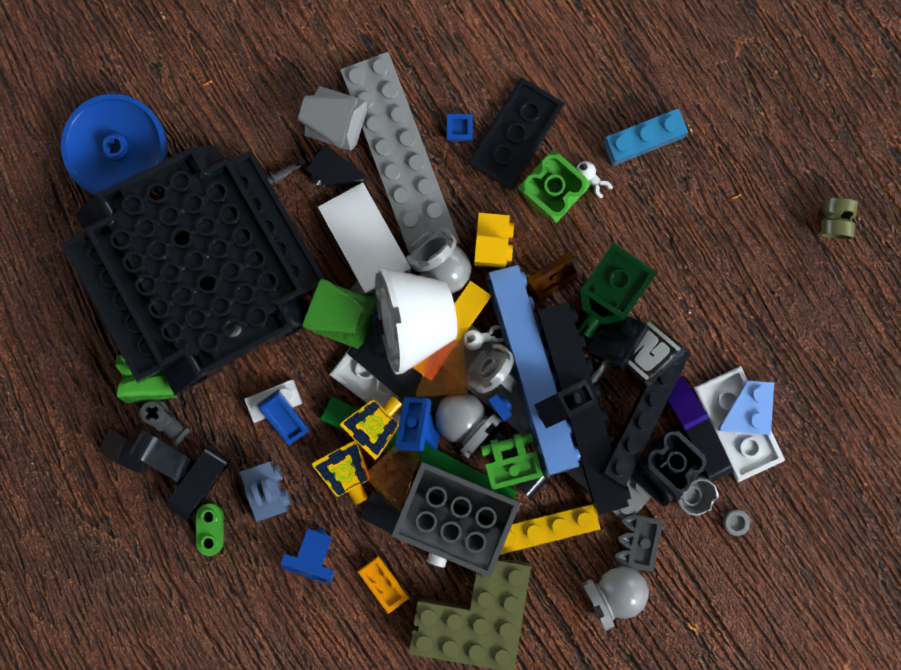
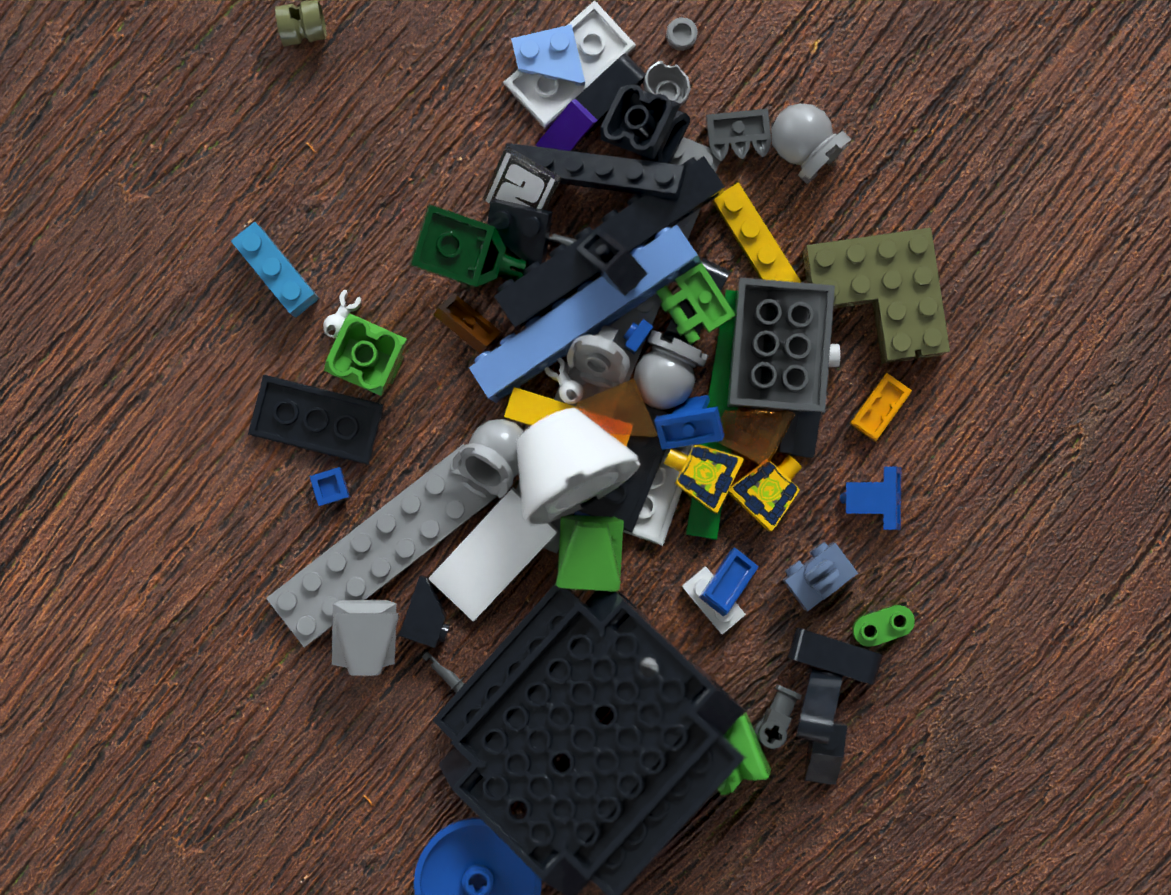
camera: 110 degrees left, 0 degrees up
(492, 241) = (451, 406): yellow brick -> none

